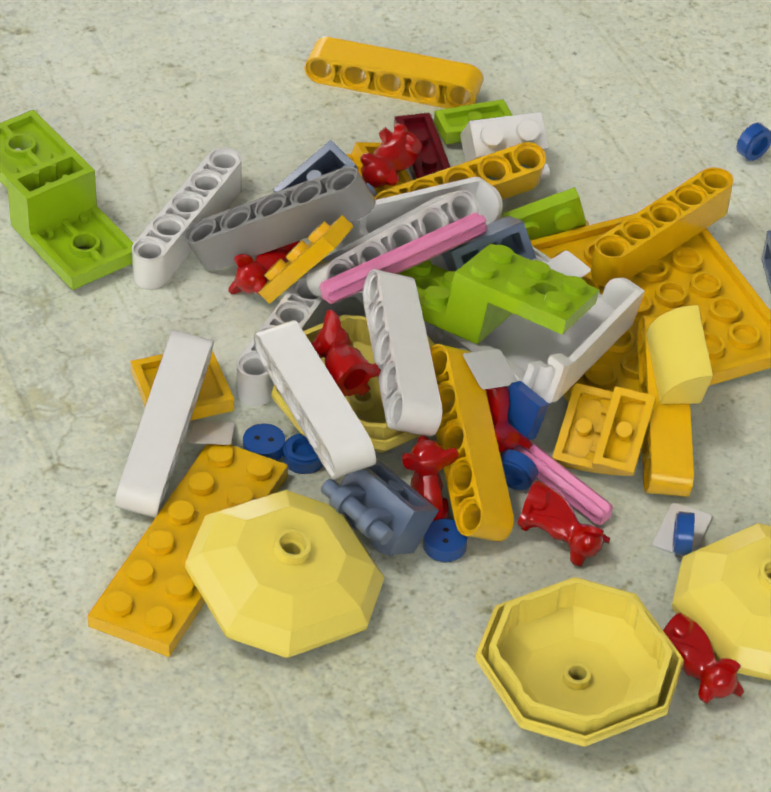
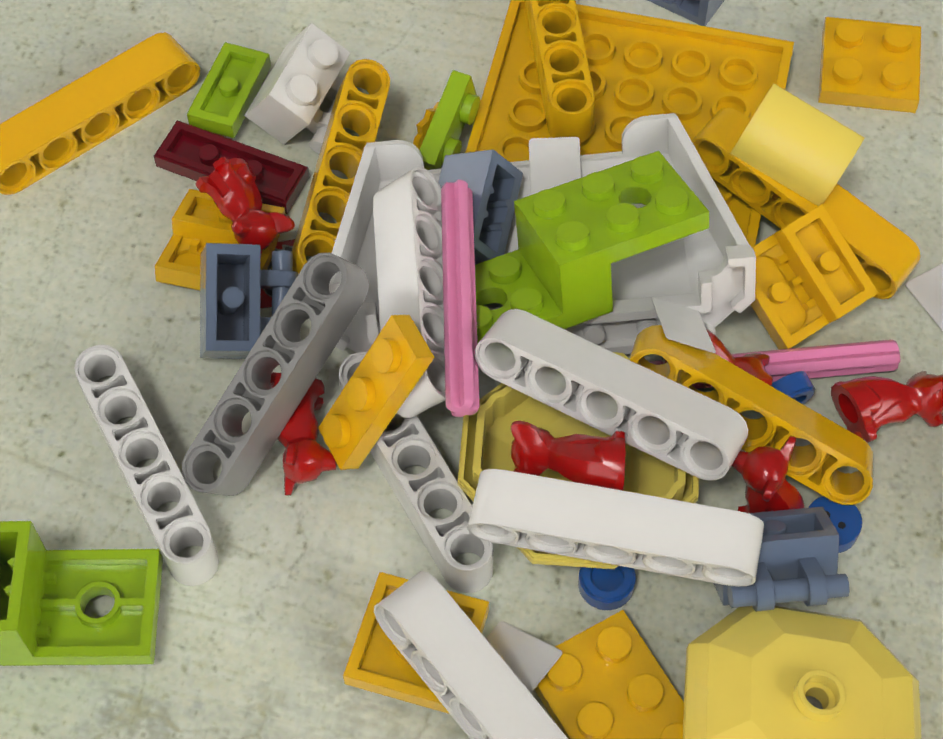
camera: 50 degrees left, 15 degrees up
(264, 440) = (564, 611): blue tile -> none
(526, 409) = (734, 326): blue tile -> none

